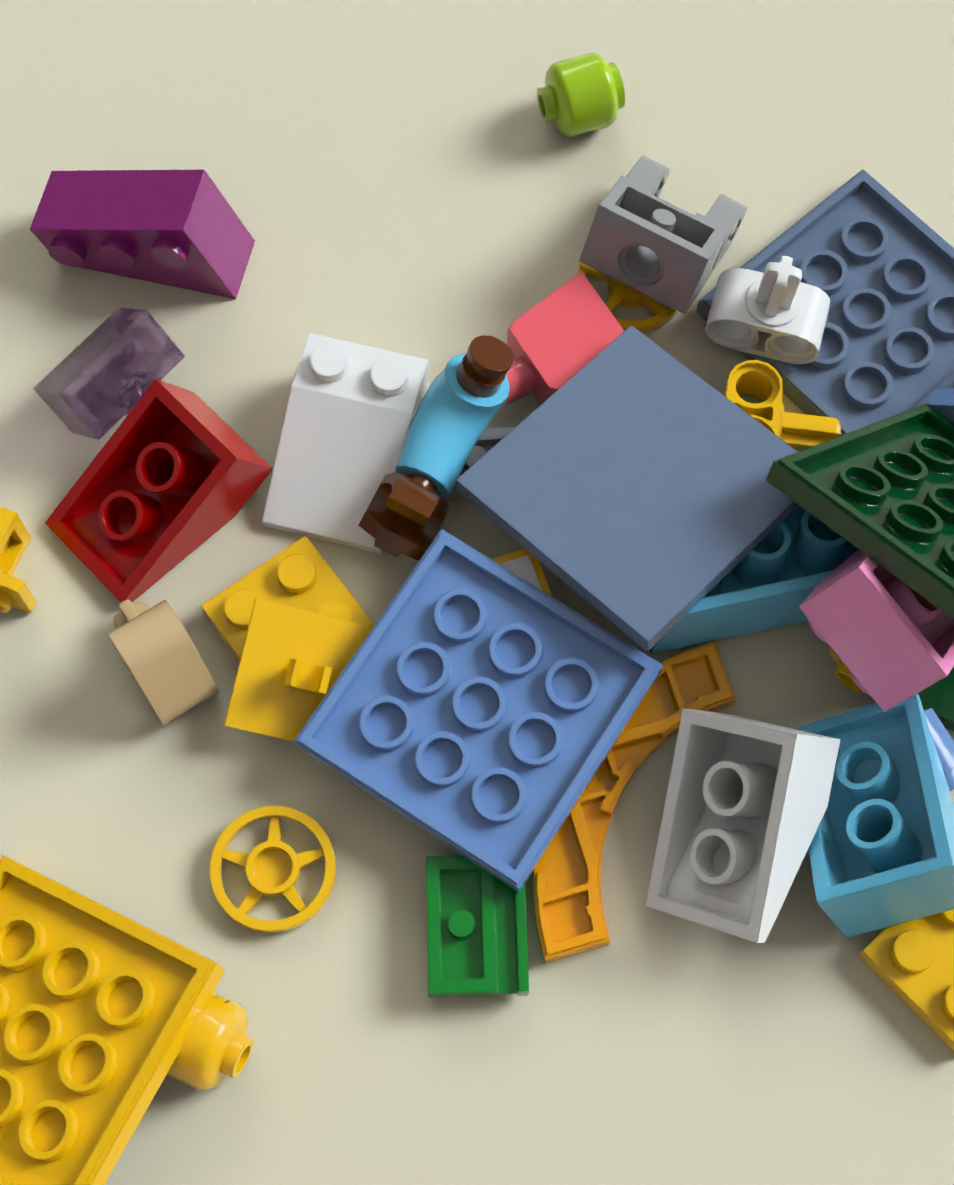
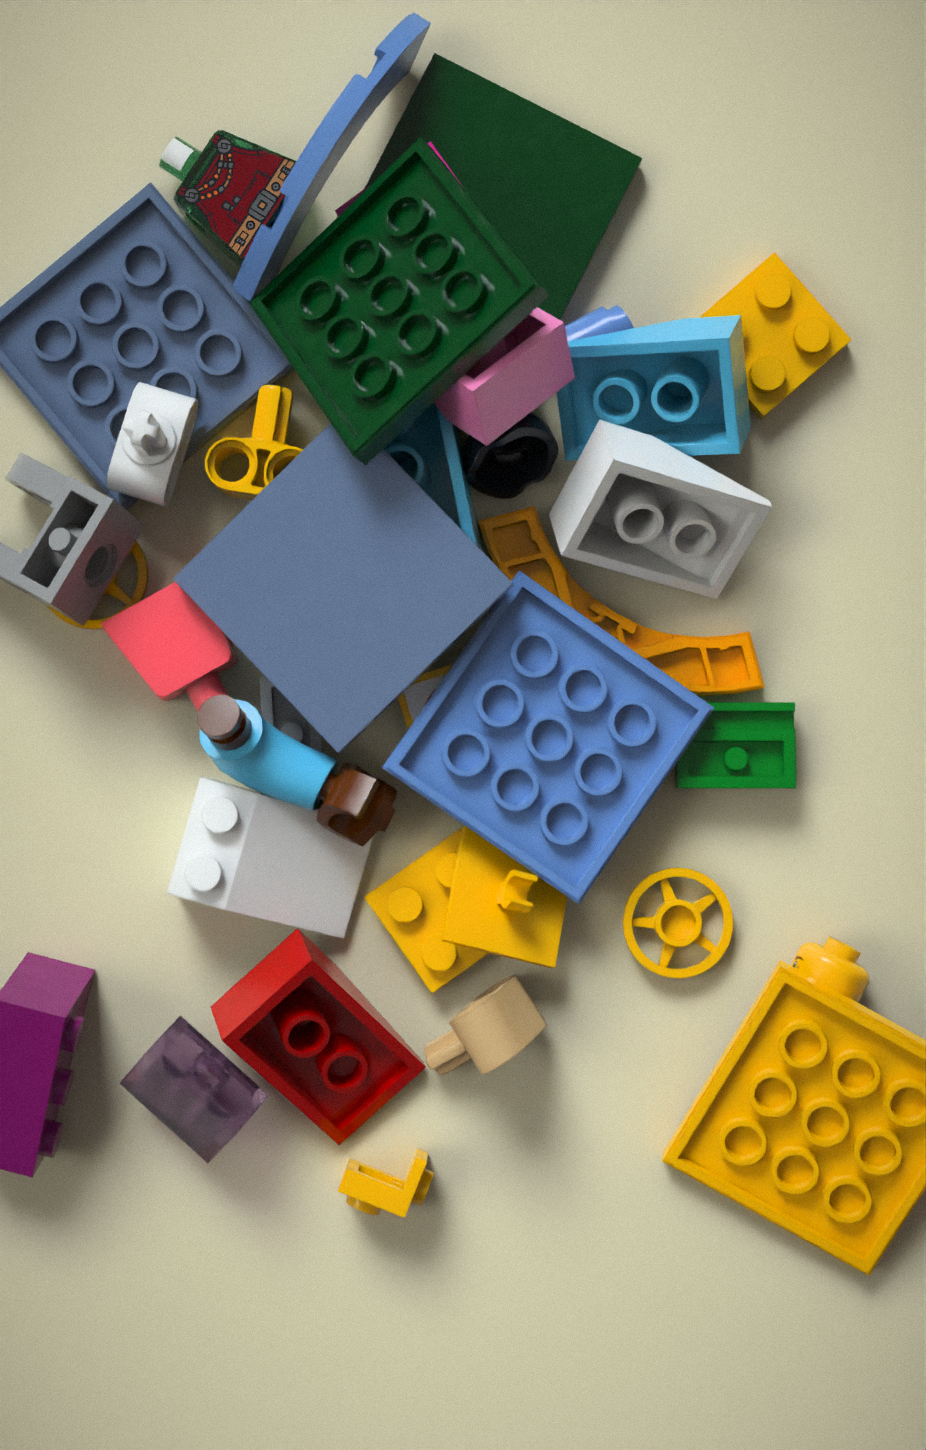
camera: 90 degrees left, 20 degrees up
(788, 656) = (510, 465): none -> black helmet

